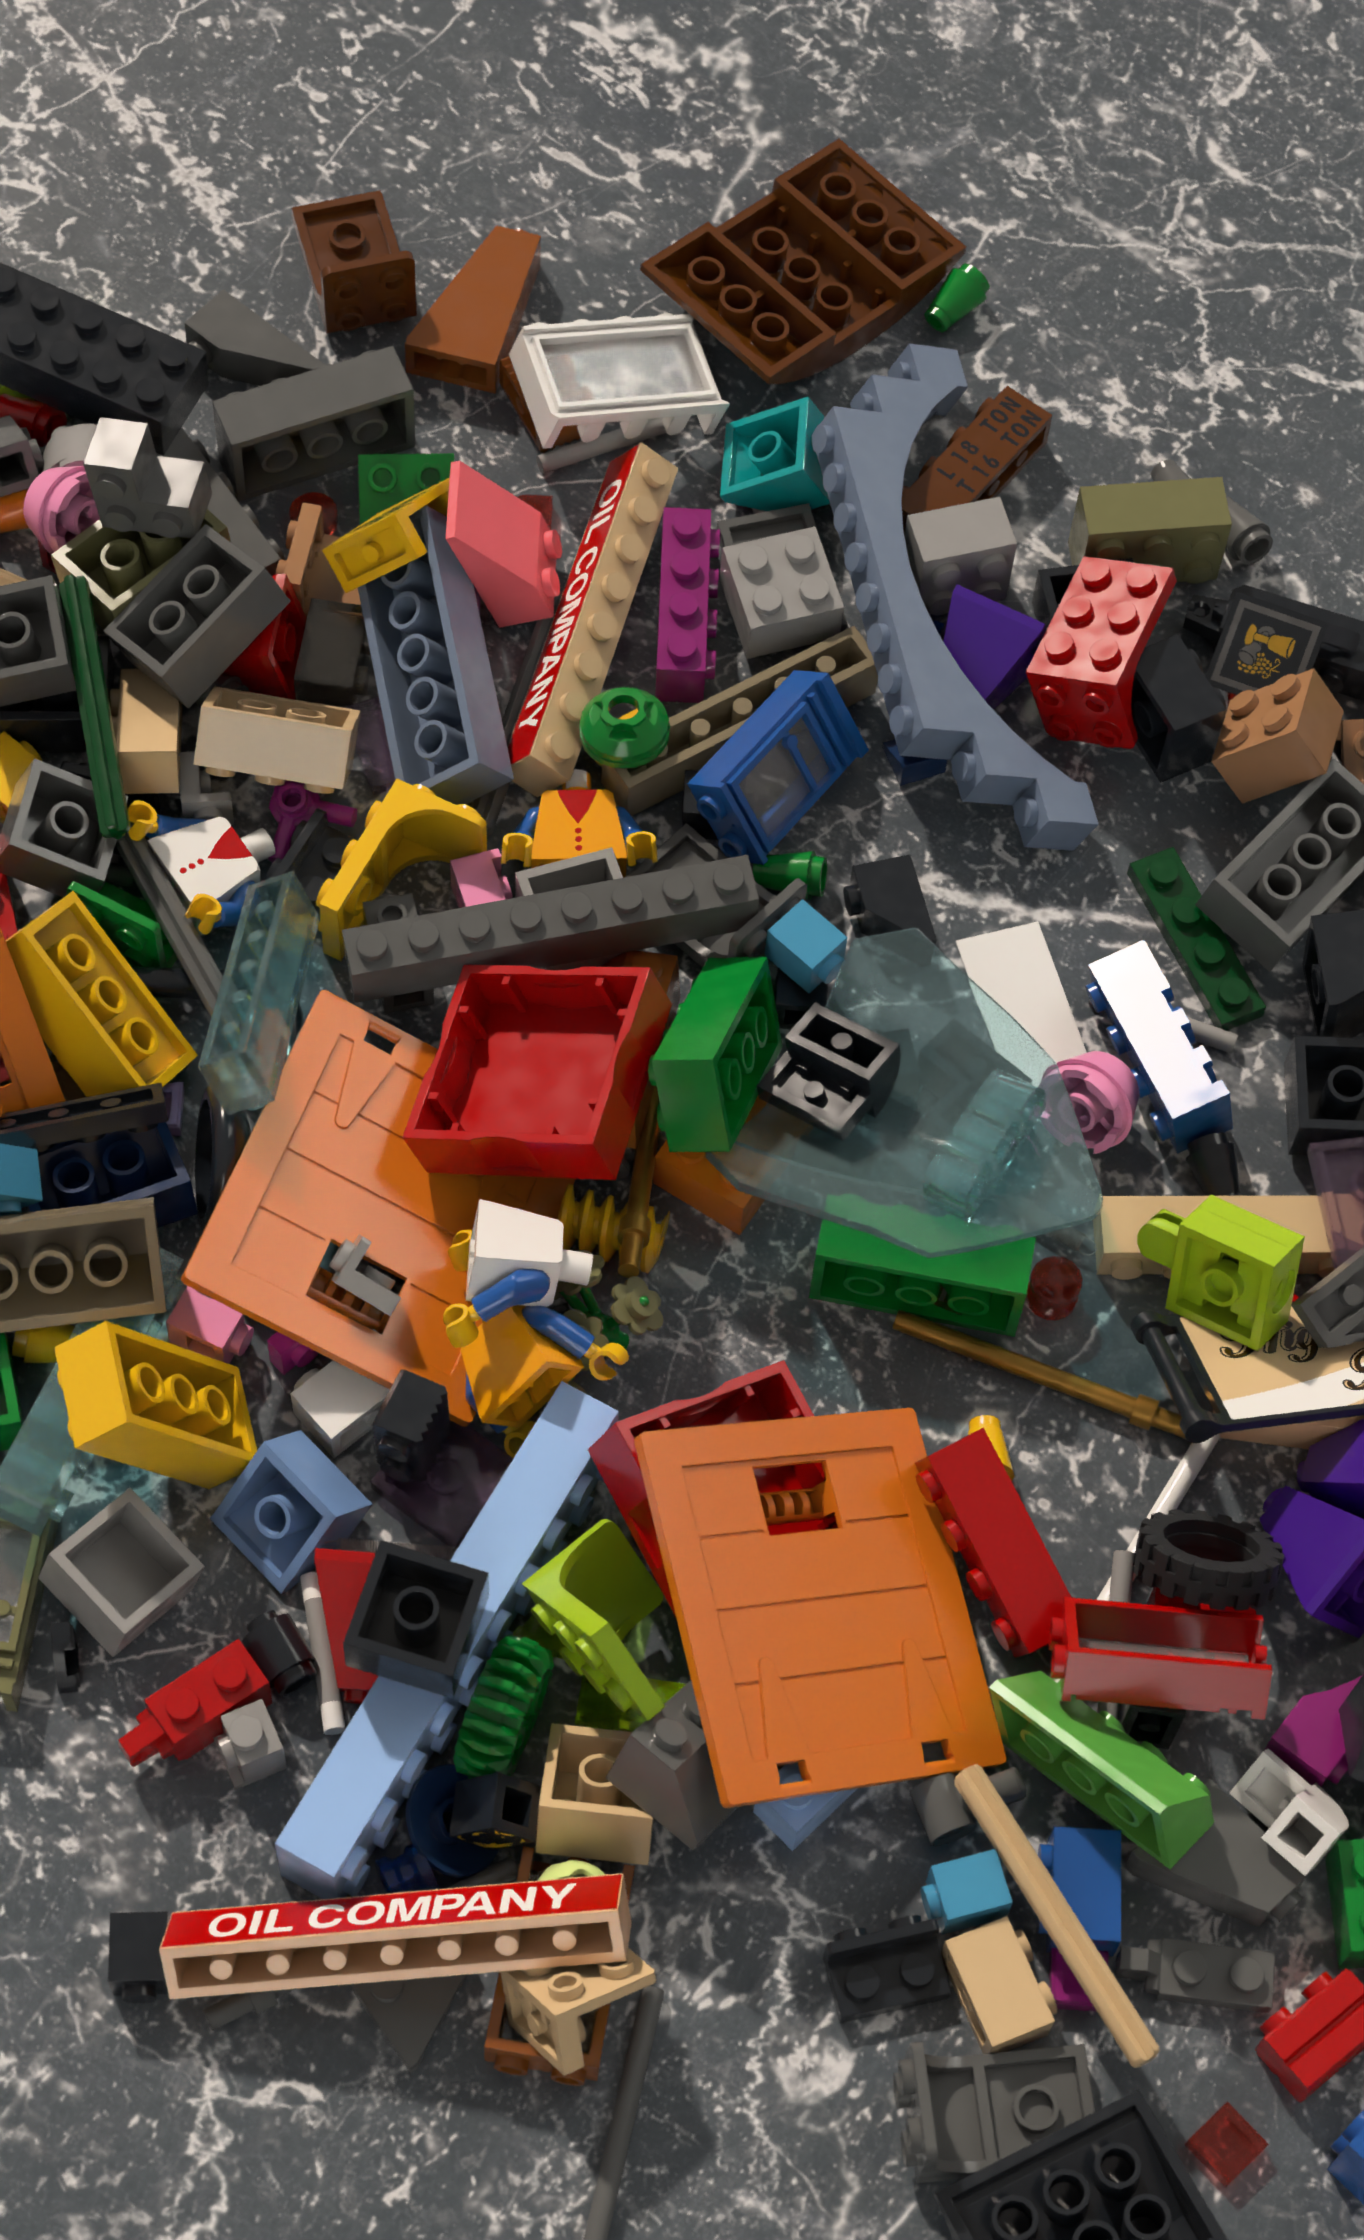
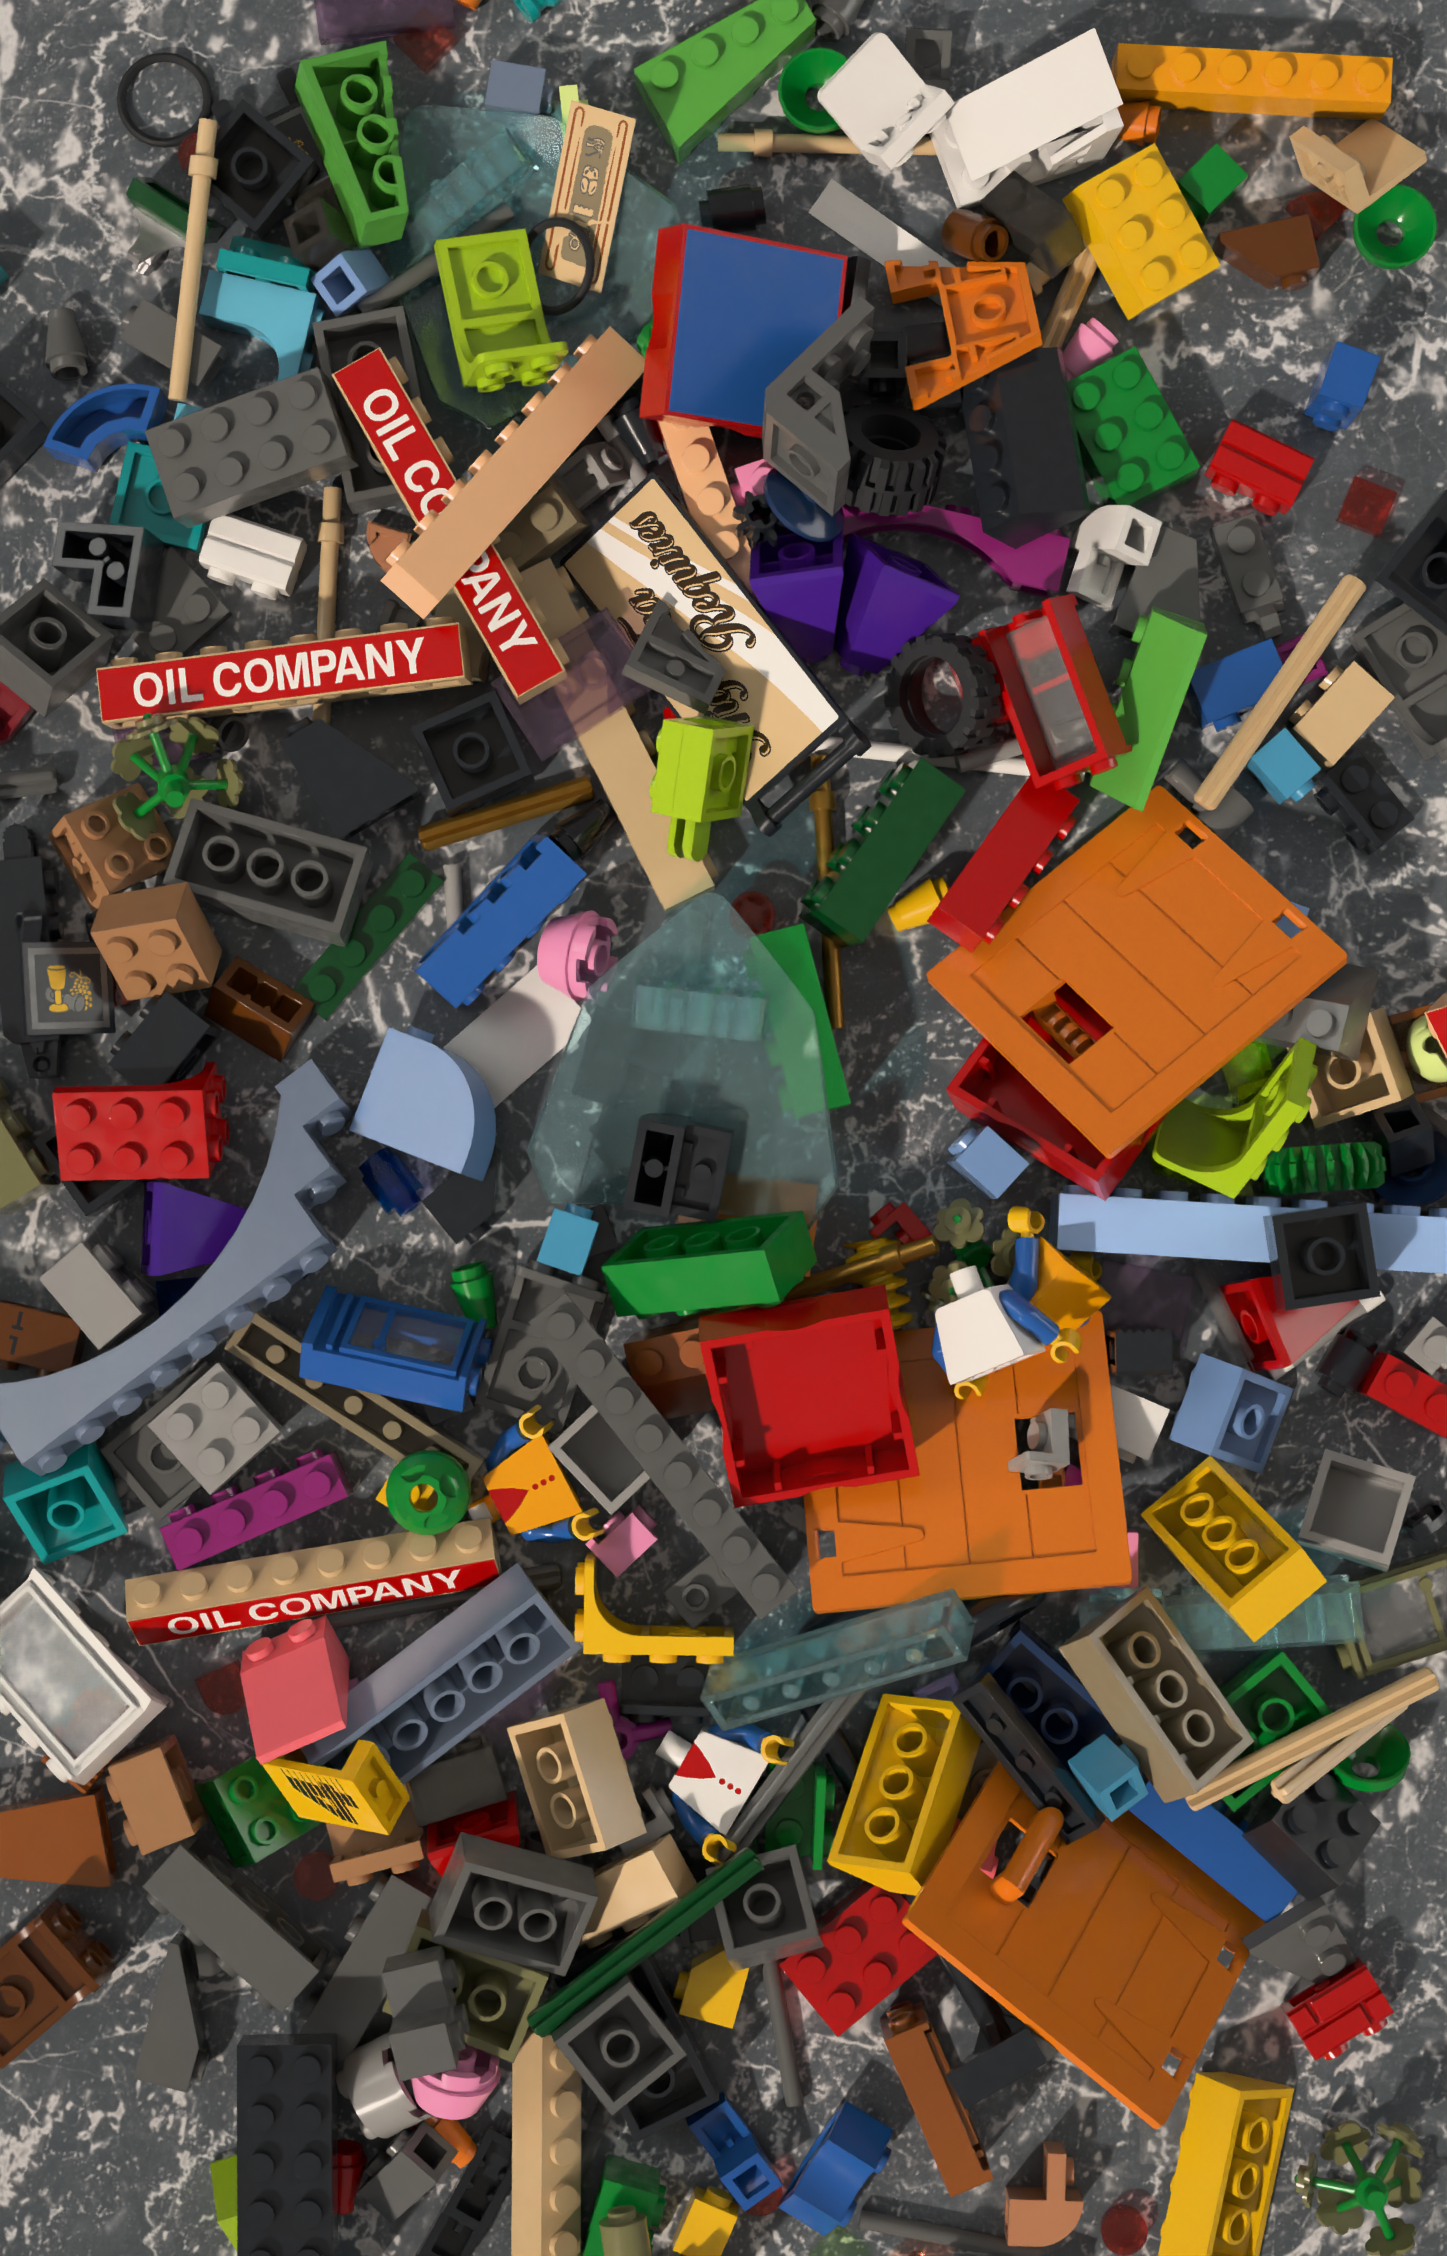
camera: 115 degrees left, 25 degrees up
(467, 410) = (156, 1795): none -> medium nougat brick
(670, 1279) = (910, 1226): none -> red bracket
(686, 1355) = (985, 1161): none -> medium blue brick
(941, 849) = (391, 1182): none -> clear blue brick
(1002, 901) = (428, 1104): none -> medium blue brick
(1065, 1418) = (880, 853): none -> dark green brick
(1169, 811) = (258, 1008): none -> reddish brown brick
(1266, 1109) = (506, 813): none -> pearl gold axle

